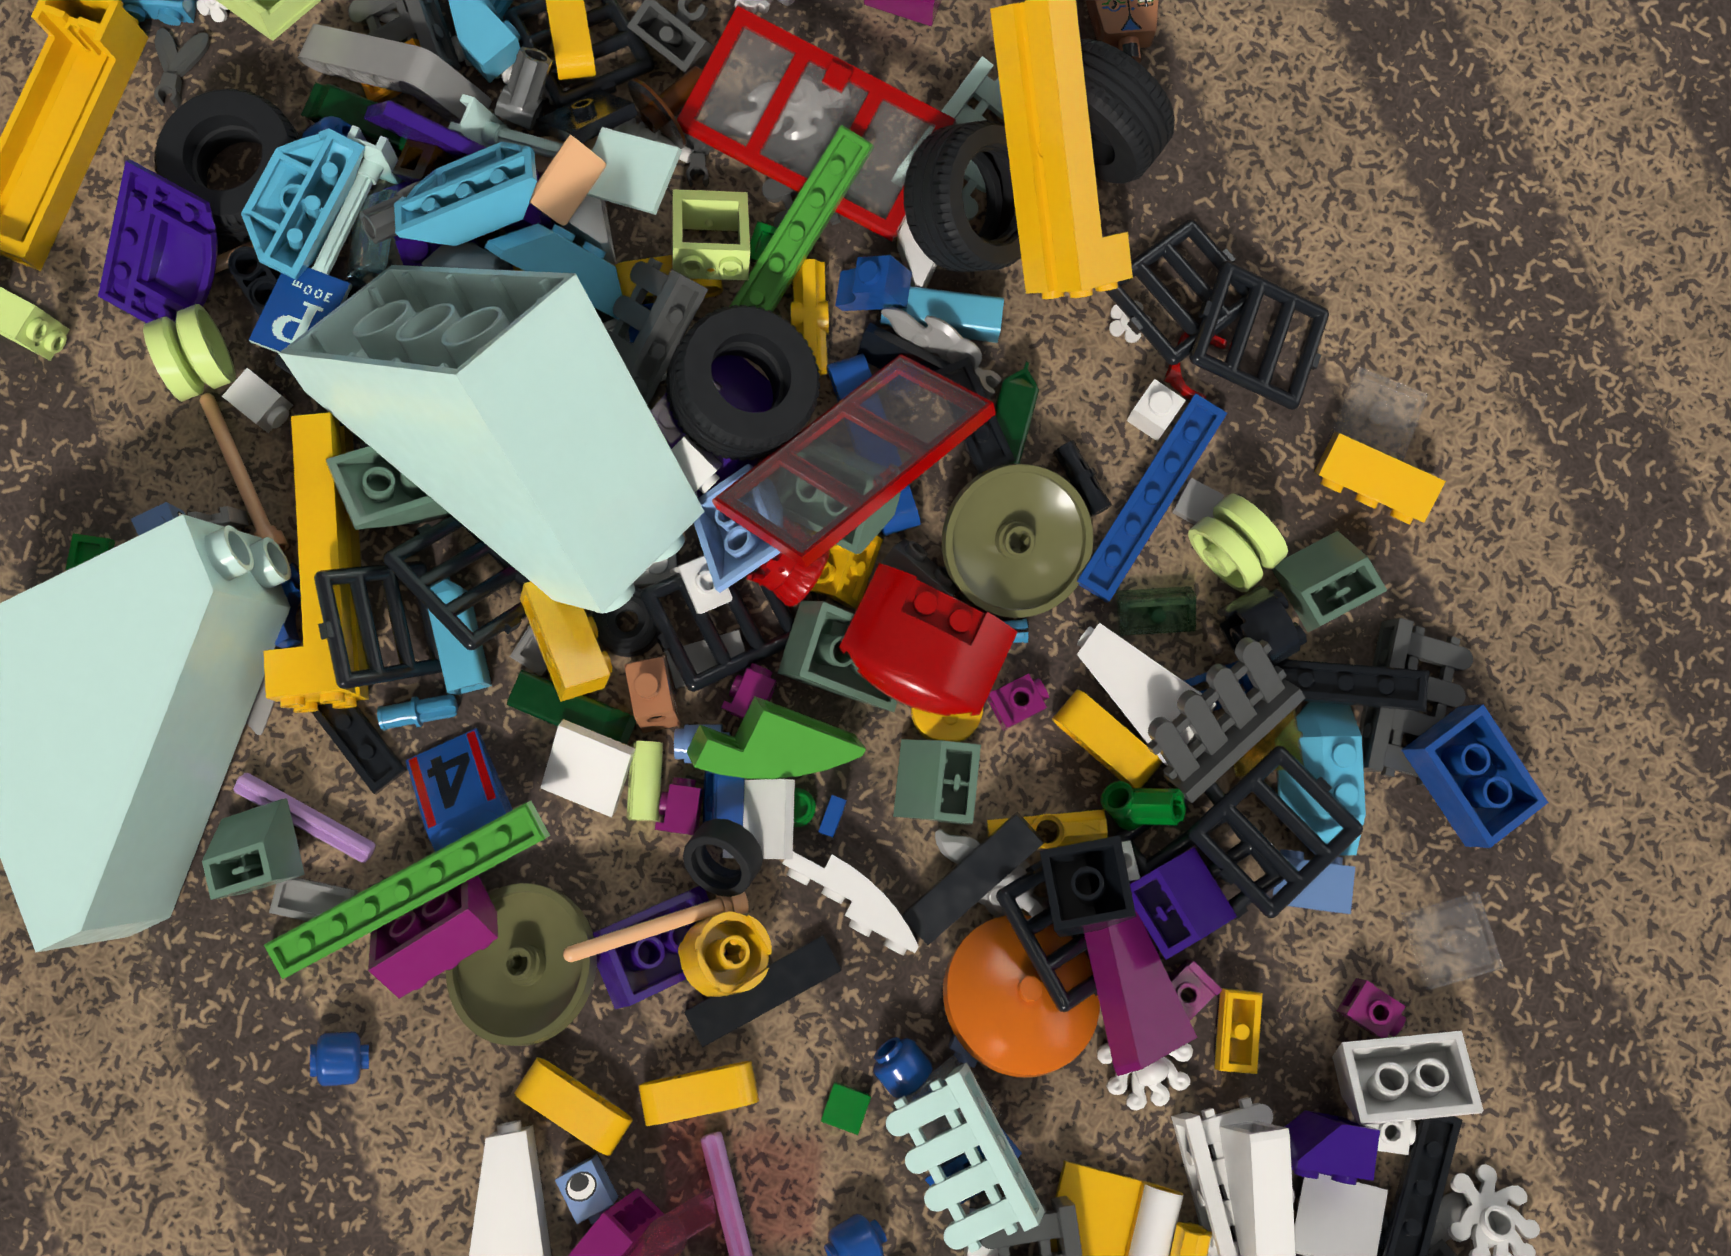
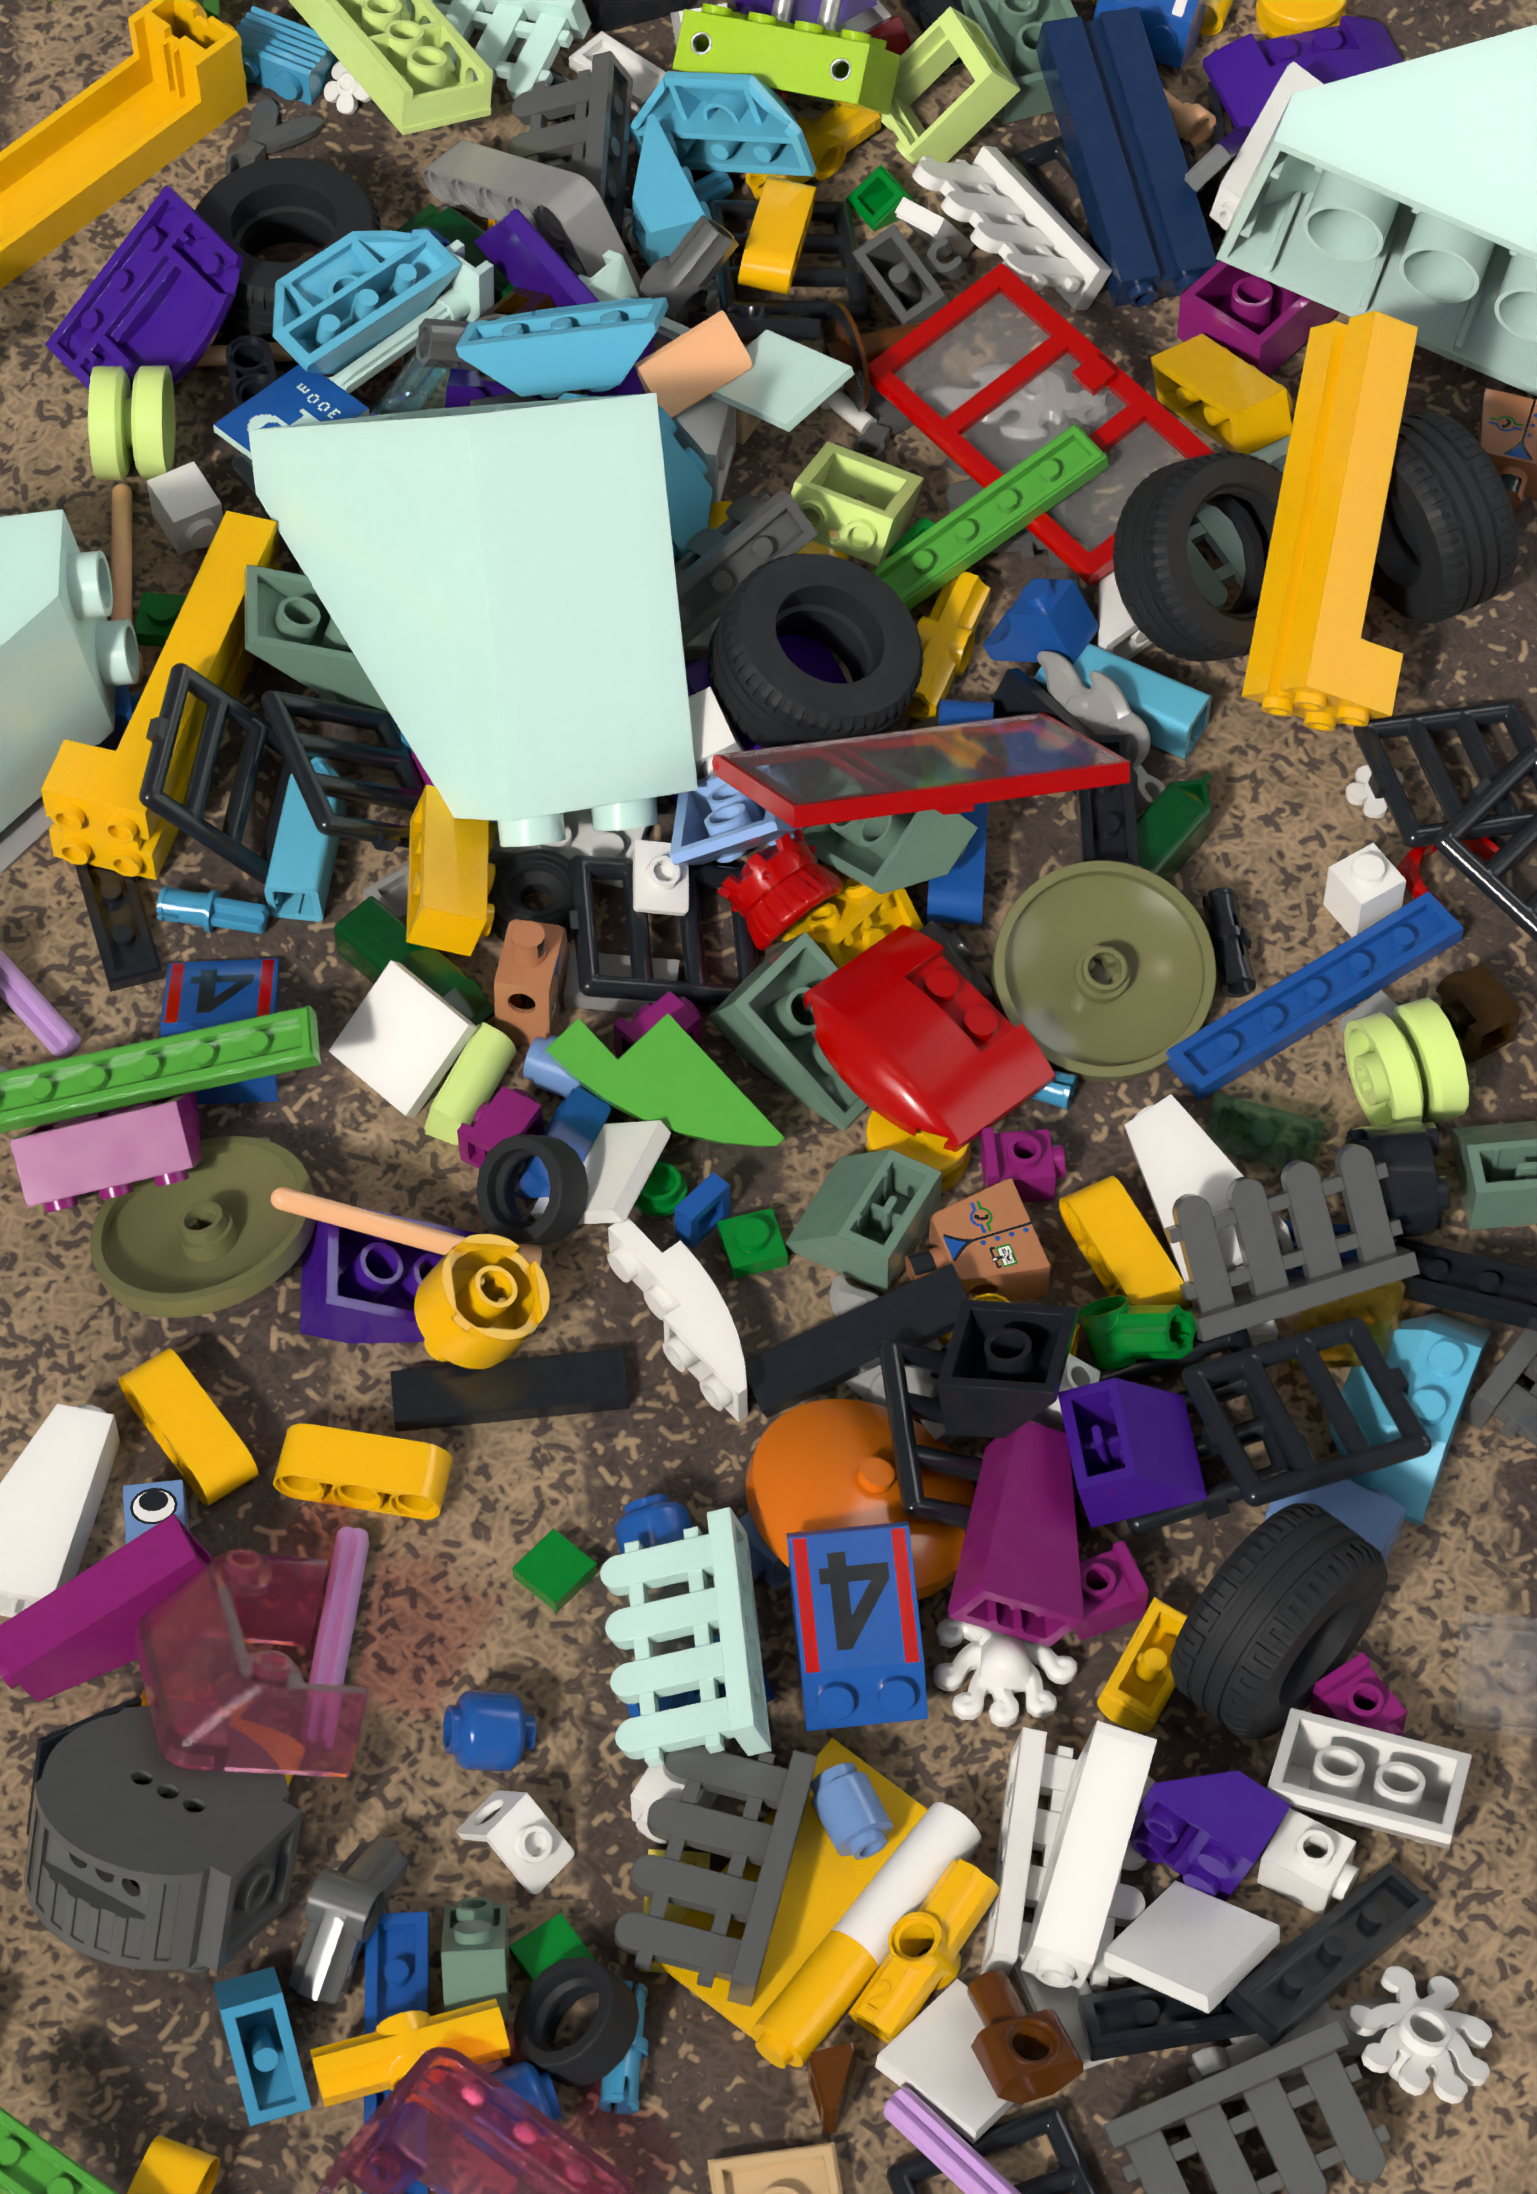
camera: 25 degrees right, 25 degrees down
(278, 492) = (157, 617): none -> green plate
(870, 821) = (752, 1243): none -> green plate
(920, 50) = (1222, 395): none -> yellow brick
(1019, 774) = (988, 1244): none -> nougat torso
(1062, 1101) = (856, 1626): none -> blue slope
(1102, 1216) = (850, 1811): none -> medium blue brick
(1257, 472) = (1478, 1011): none -> dark brown brick
(1324, 1000) = (1278, 1619): none -> black tyre

